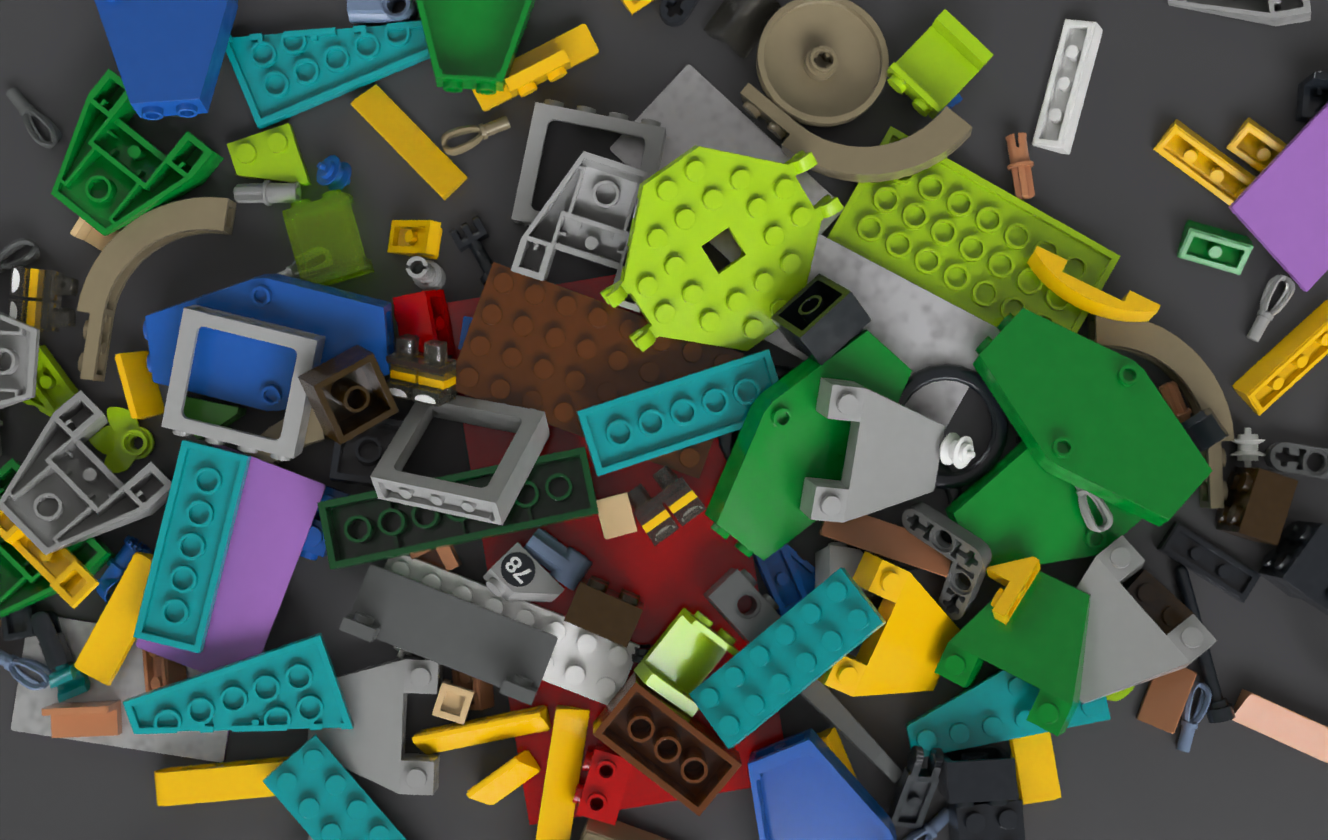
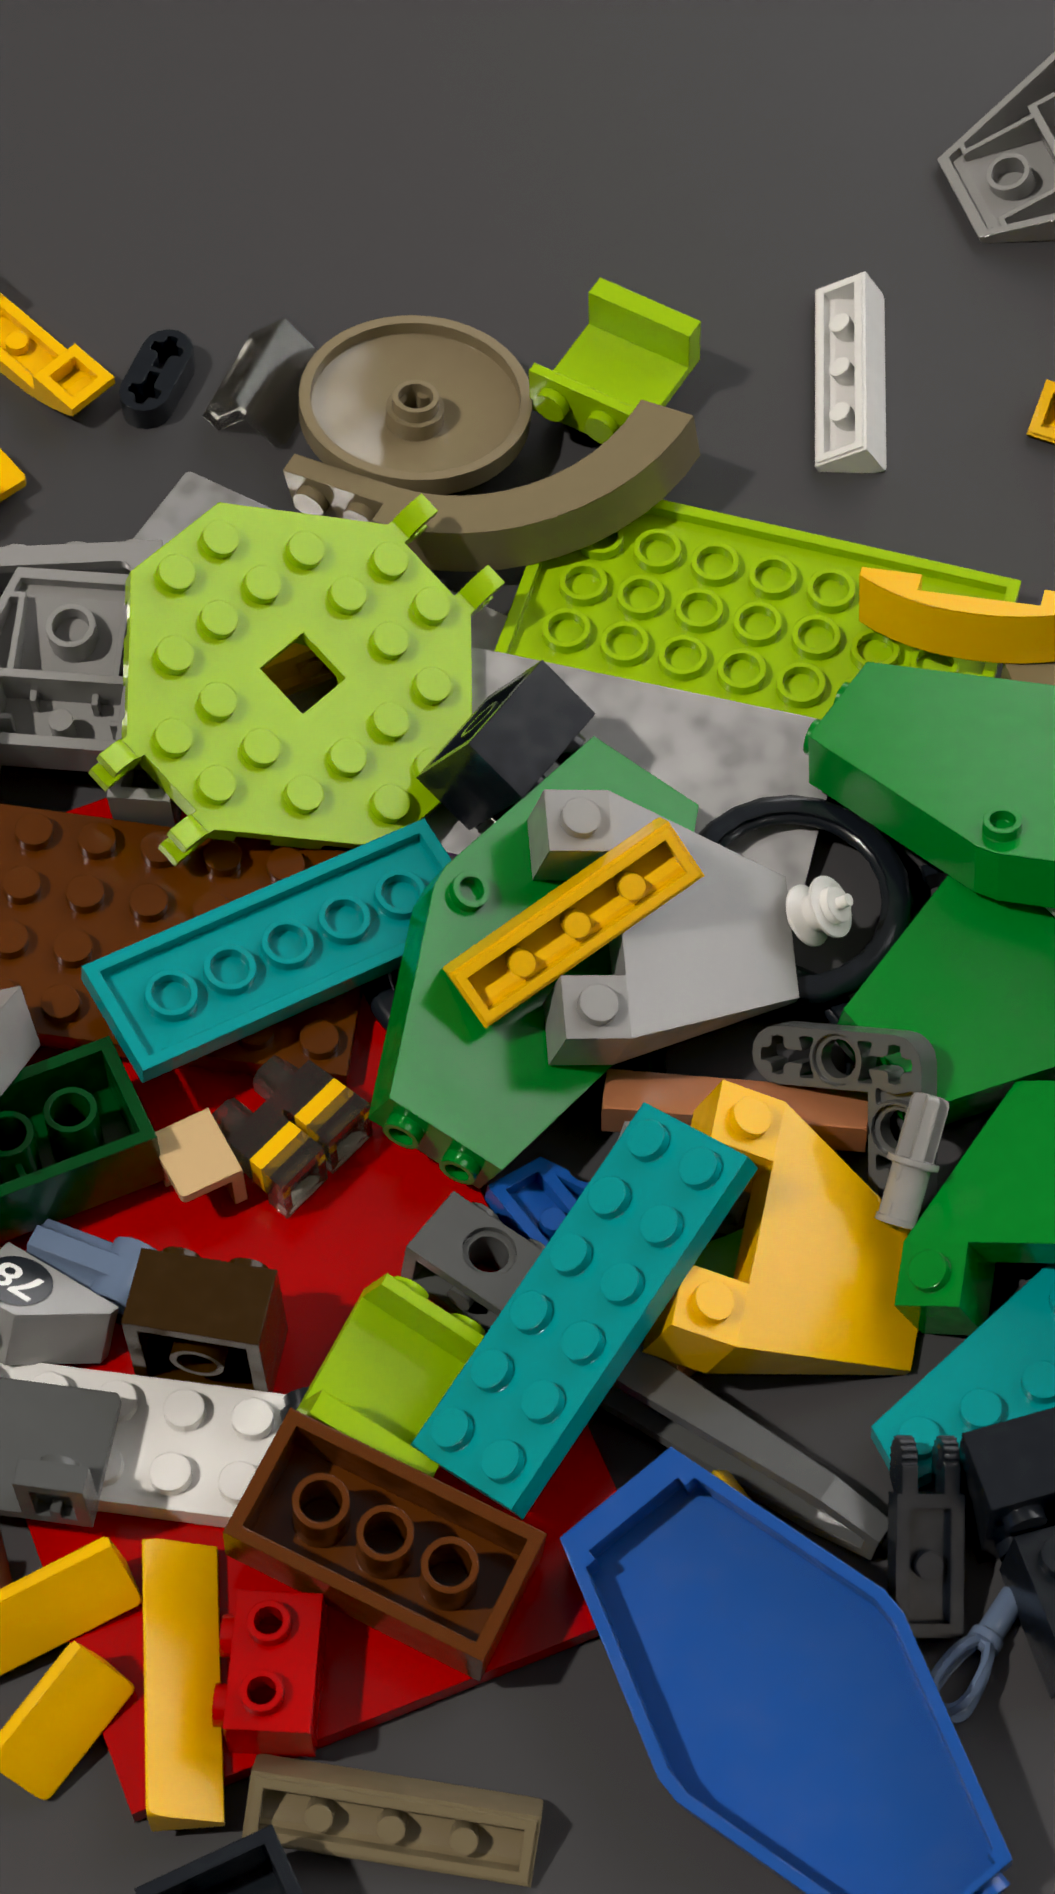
camera: 10 degrees left, 30 degrees down
(829, 454) = (573, 921): none -> yellow slope
(963, 607) = (913, 1160): none -> light grey axle
(1017, 578) = (991, 1099): yellow slope -> none
(1020, 166) = (803, 491): nougat axle -> none

